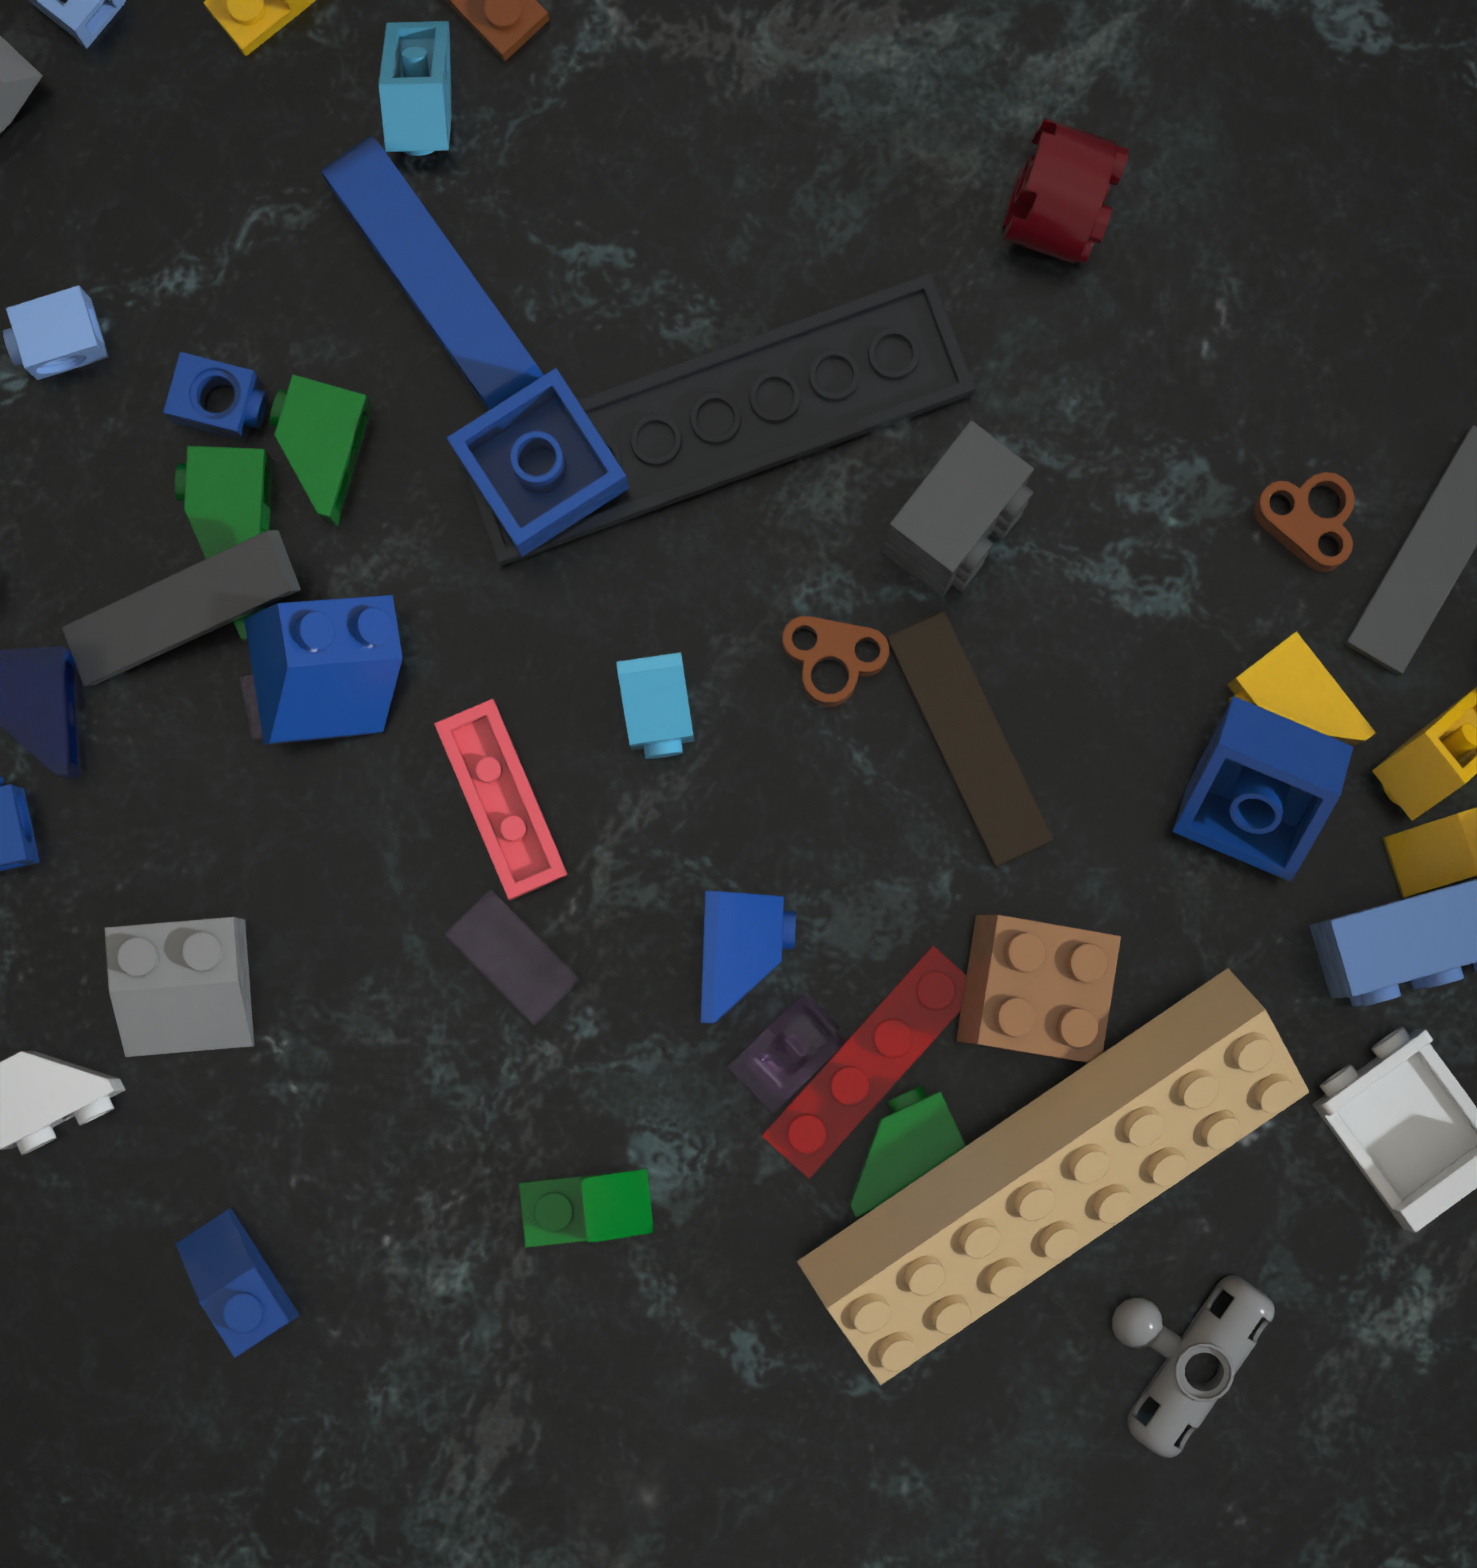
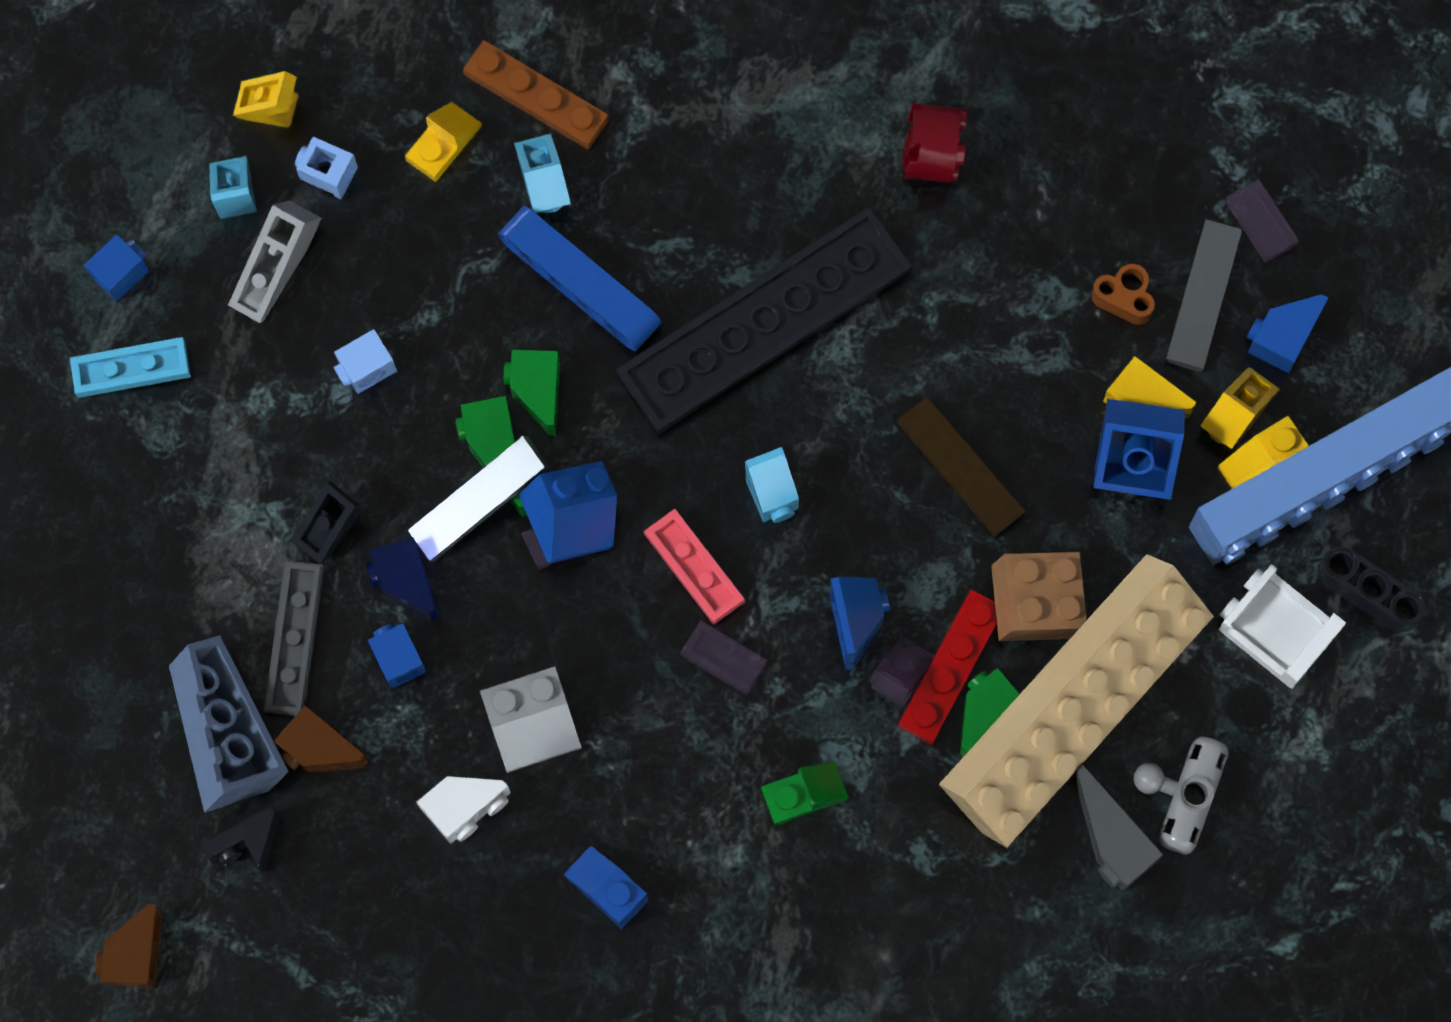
camera: 15 degrees left, 10 degrees down
(196, 378) = (453, 368): blue brick -> none
(538, 462) = (670, 363): blue brick -> none
(837, 643) = (868, 430): dark orange piece -> none
(961, 503) = (921, 332): dark grey brick -> none
(1057, 1410) = (1116, 840): none -> dark grey slope

